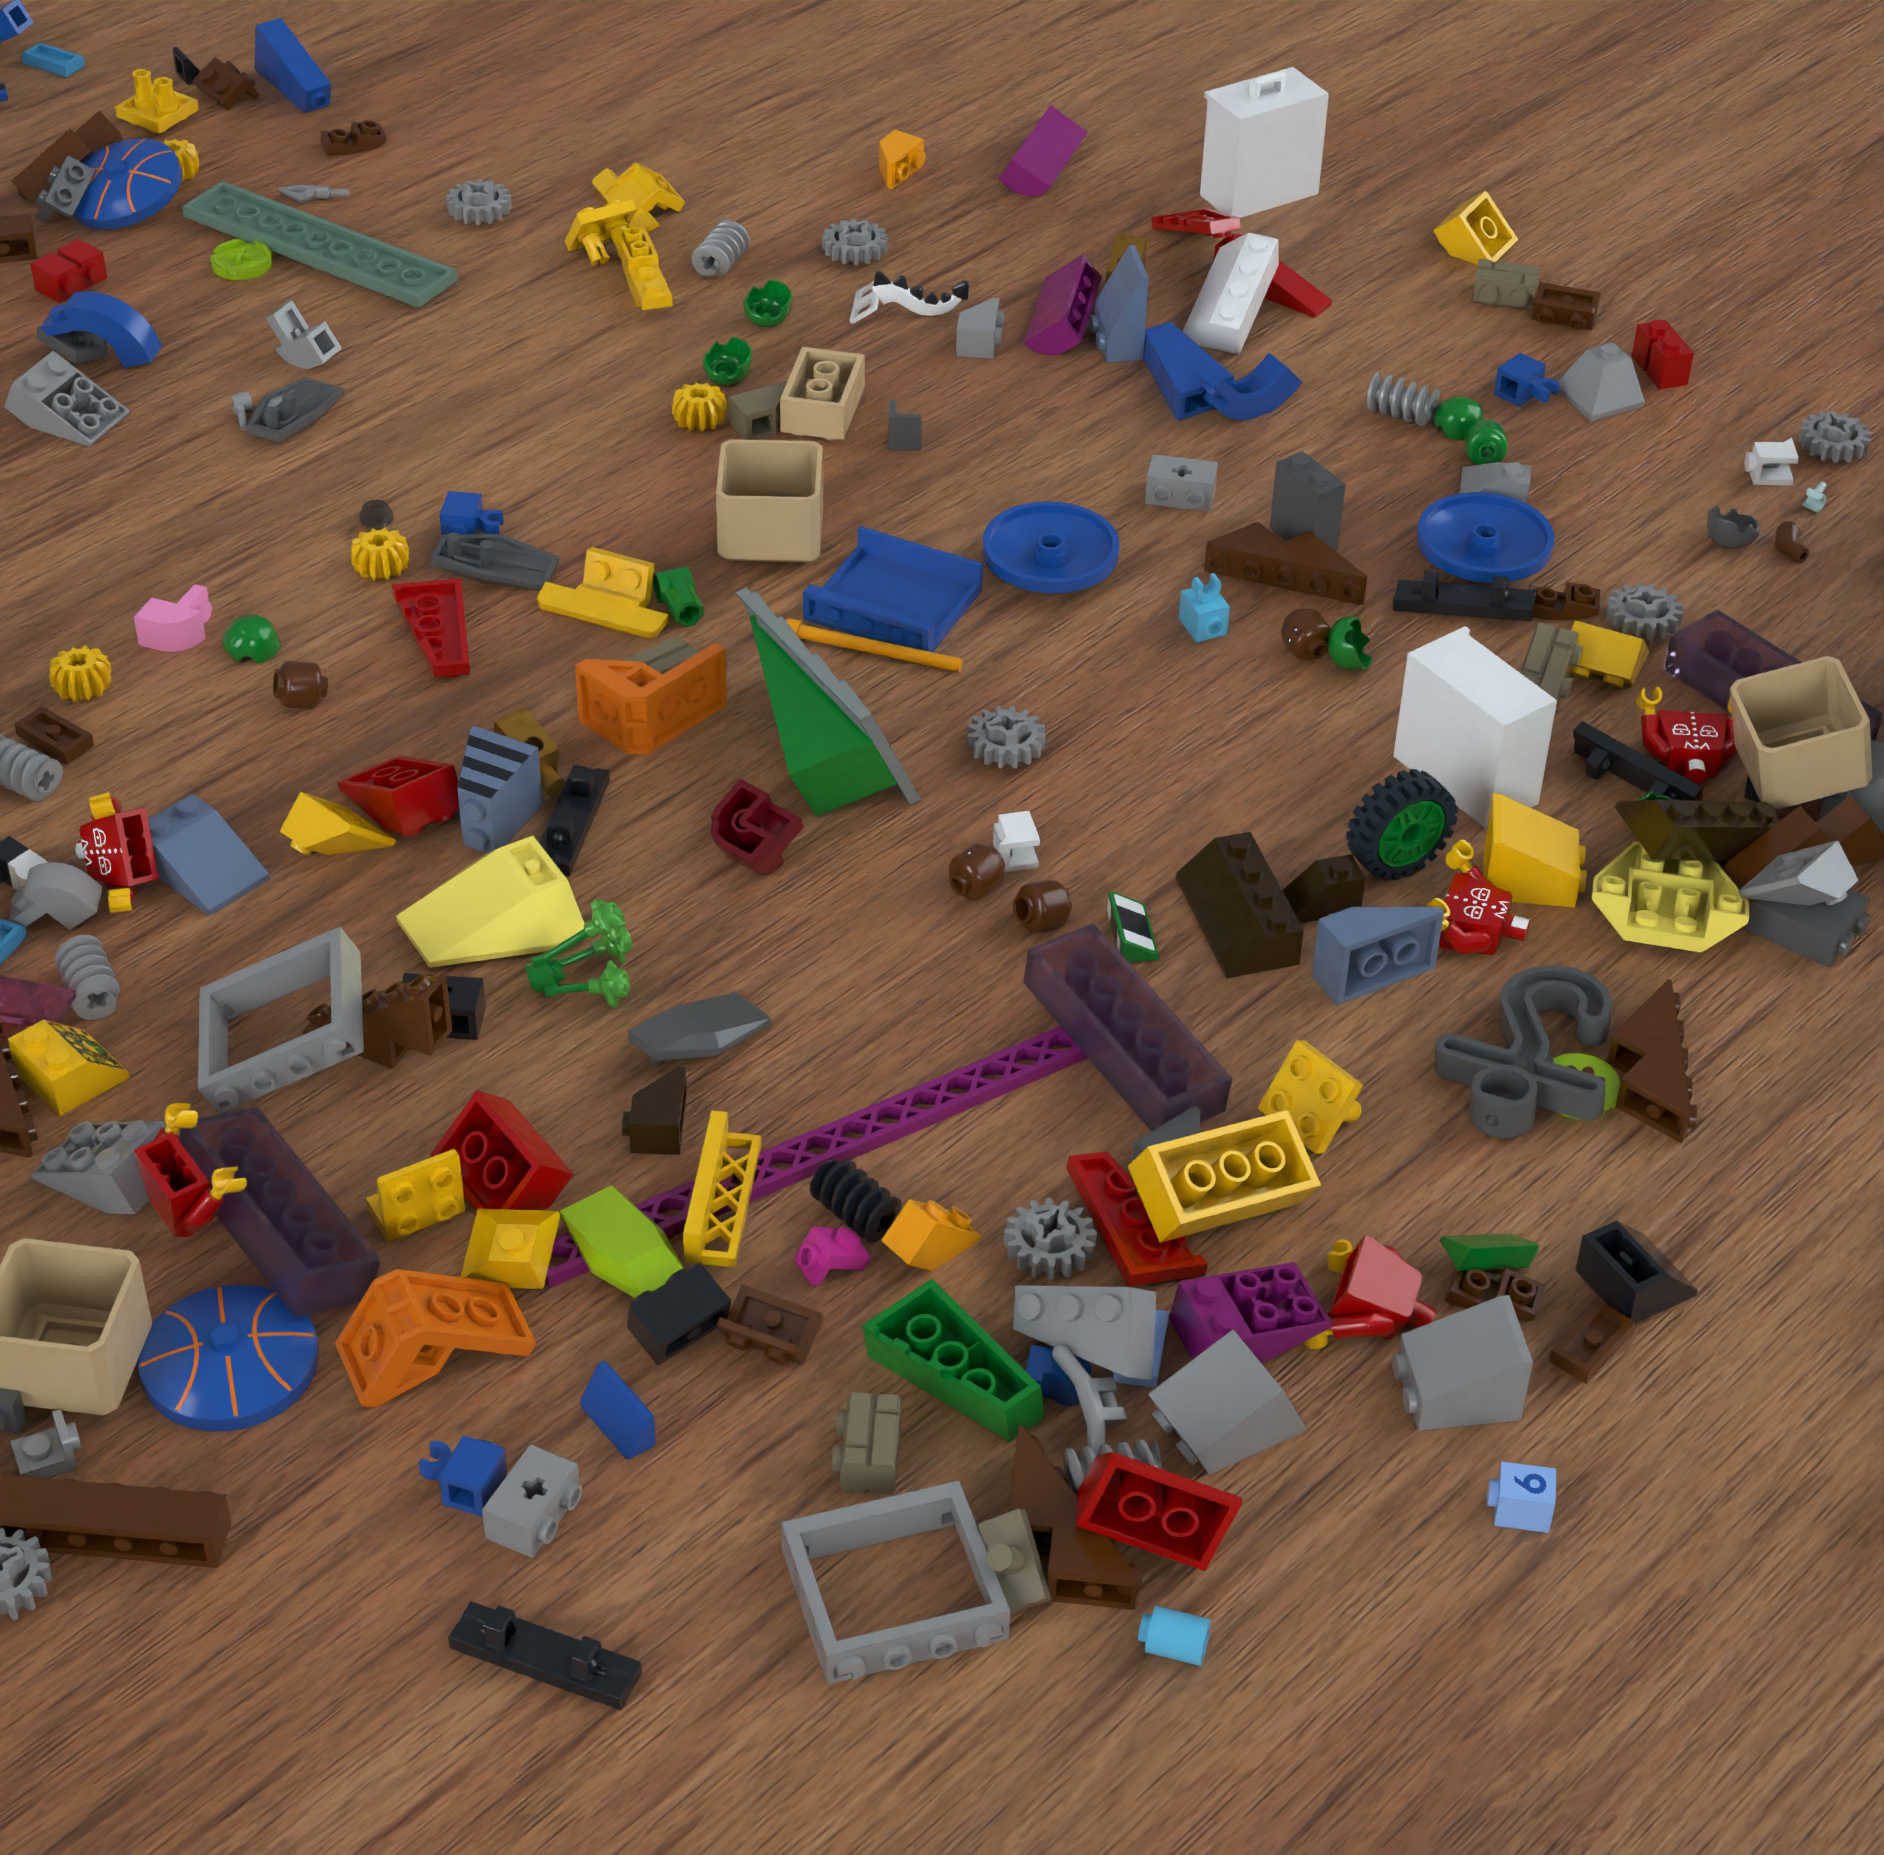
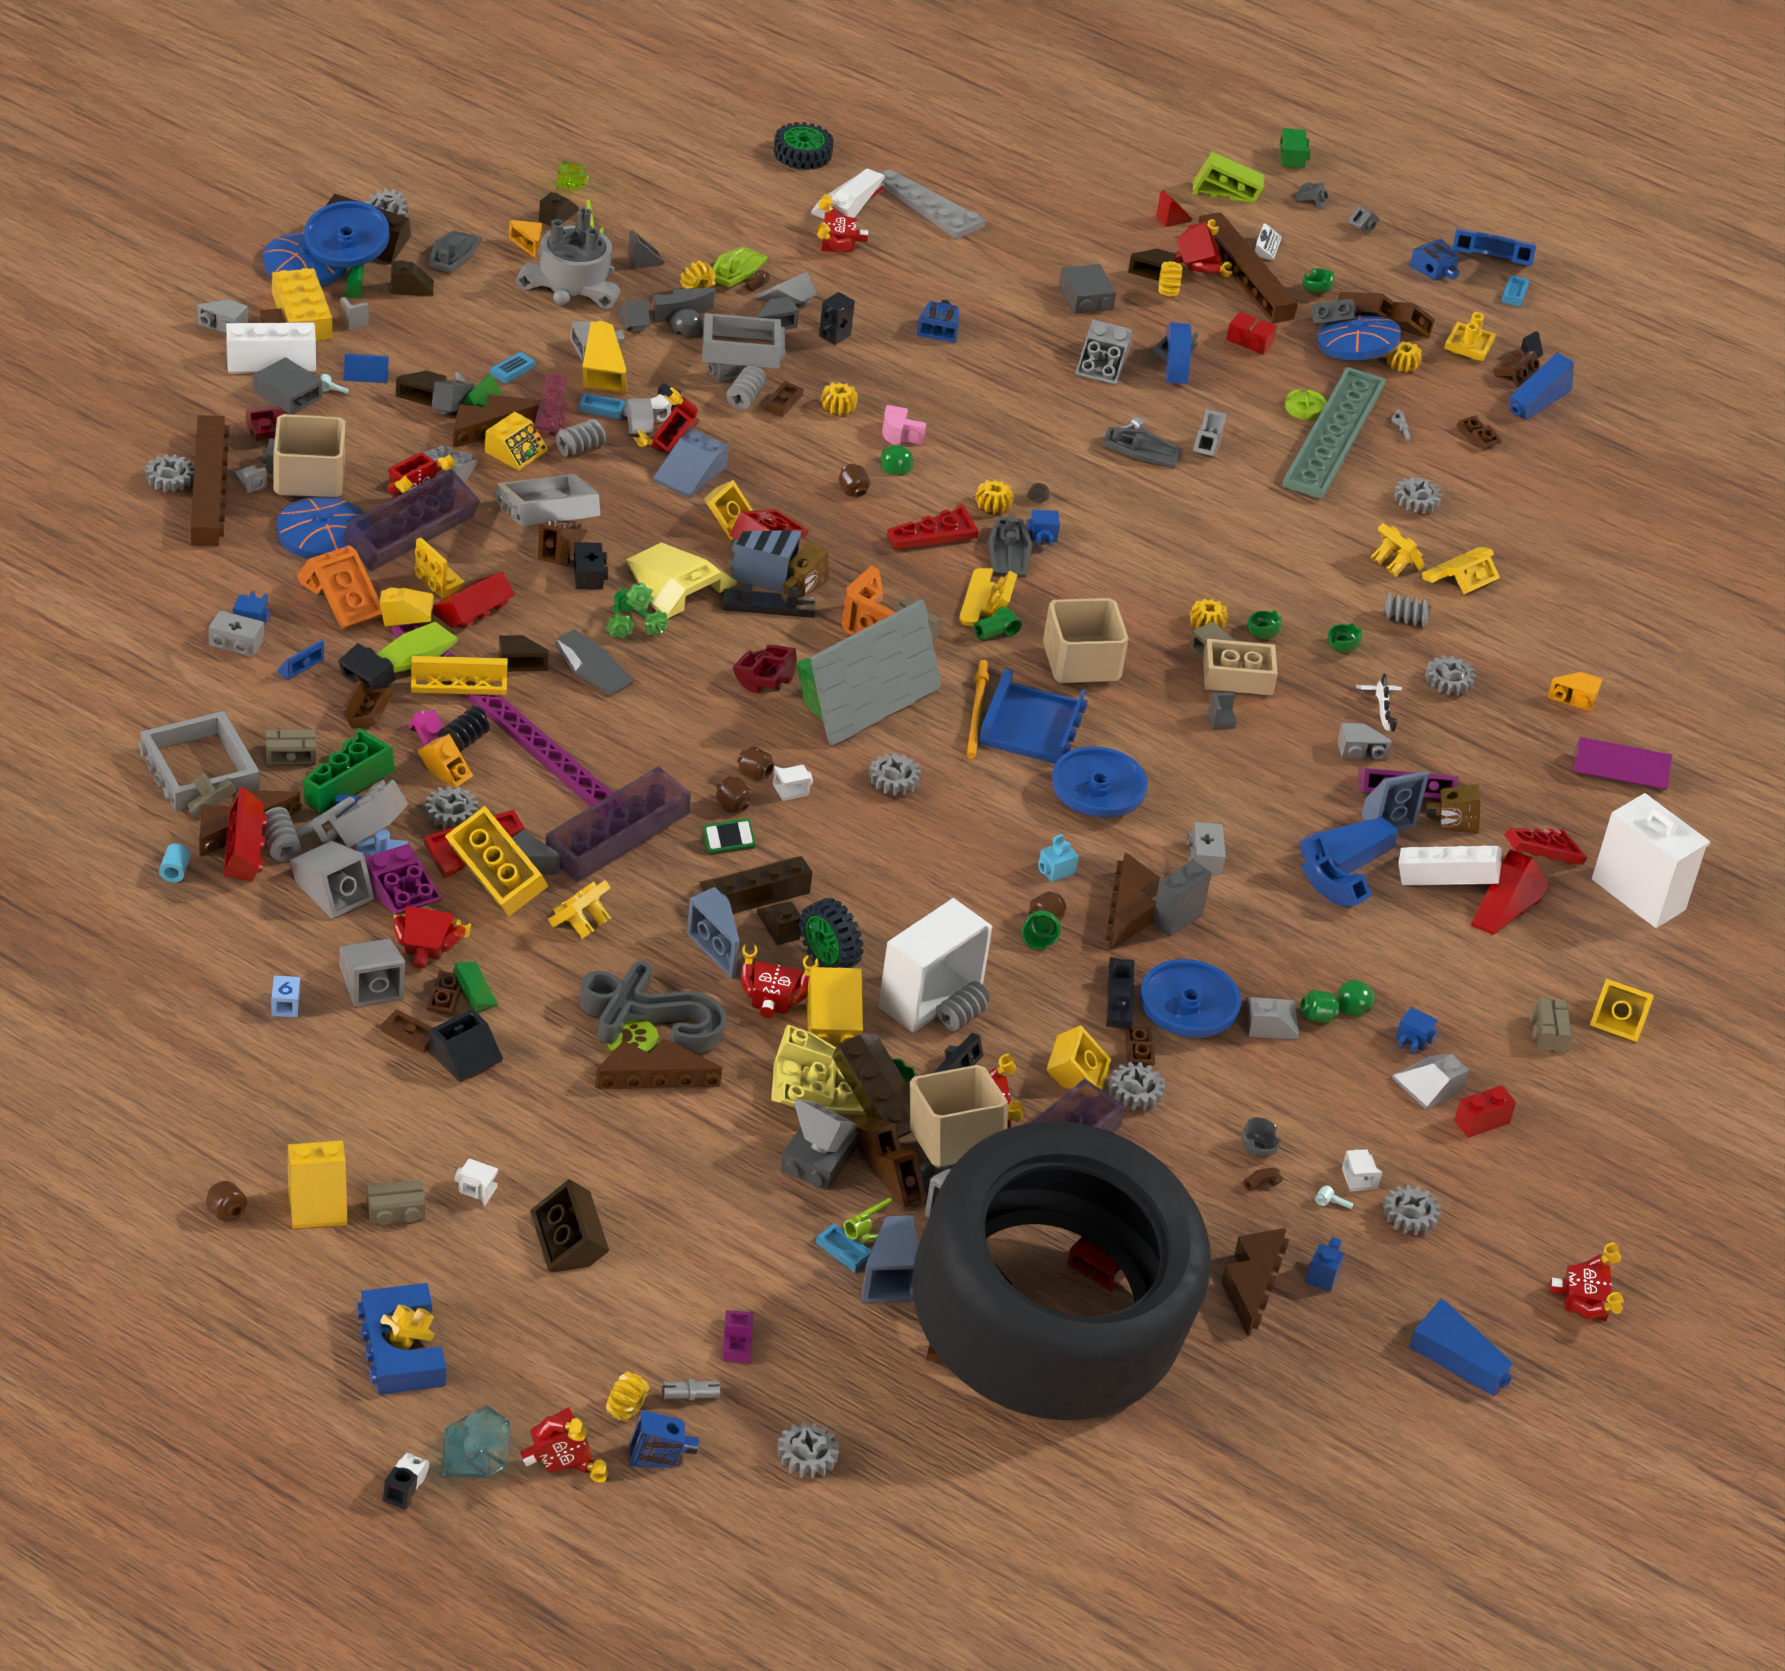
camera: 75 degrees right, 0 degrees up
(545, 1654) = (145, 652): black hinge -> none
(642, 269) = (1364, 577): yellow slope -> none
(1401, 401) = (1358, 958): light grey piece -> none
(1551, 658) = (1041, 1021): dark tan brick -> none
(1565, 306) = (1534, 1059): reddish brown bracket -> none

